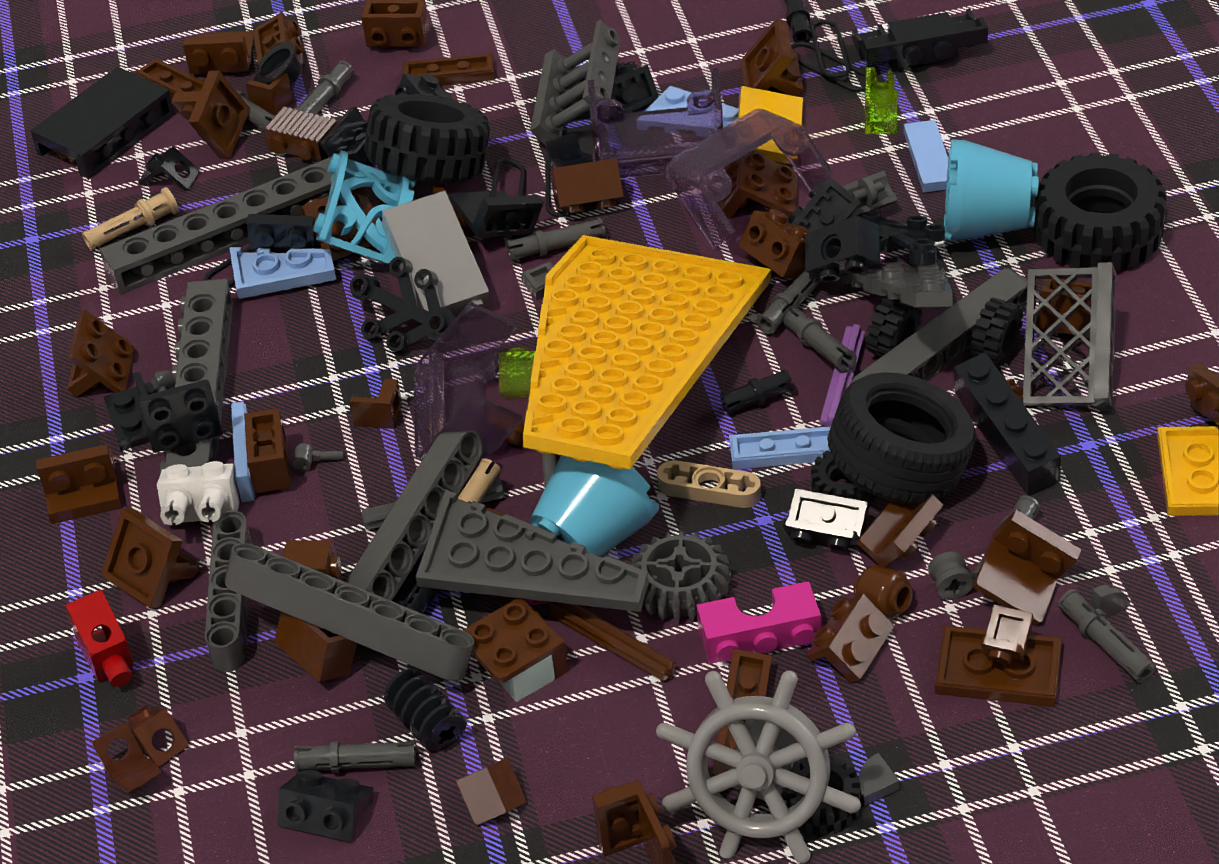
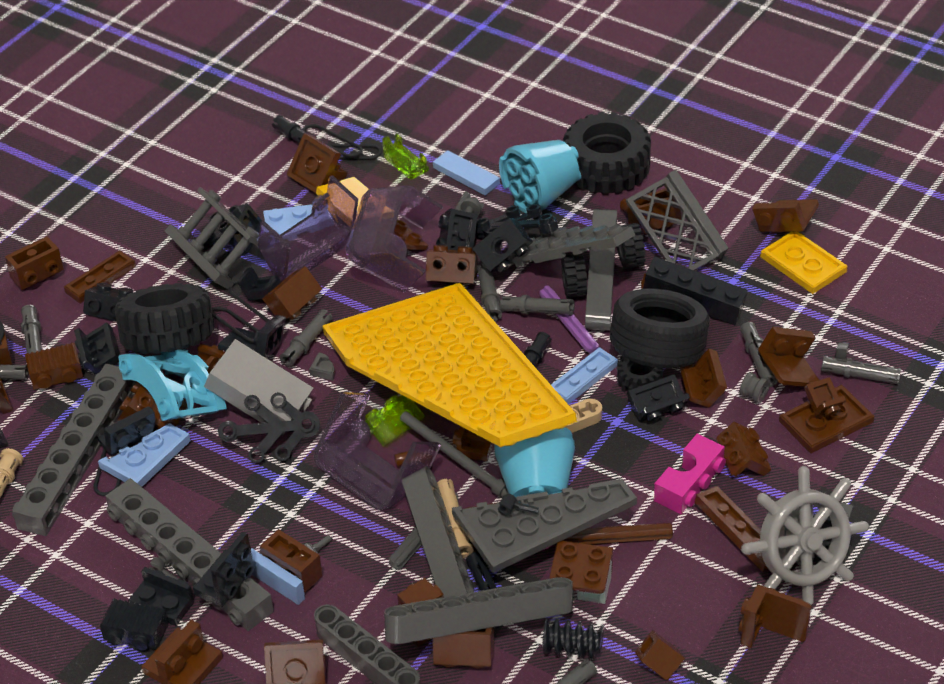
camera: 45 degrees left, 0 degrees up
(77, 420) = (134, 624): none -> black brick
(98, 356) = (94, 580): reddish brown bracket -> none
(197, 492) = (280, 613): white brick -> none
(379, 411) = (323, 498): reddish brown panel -> none
(494, 520) = (510, 502): none -> black hand
(682, 574) = (620, 464): dark grey gear -> none
(885, 589) = (731, 412): reddish brown head -> none
(921, 39) = (386, 108): black bracket -> none

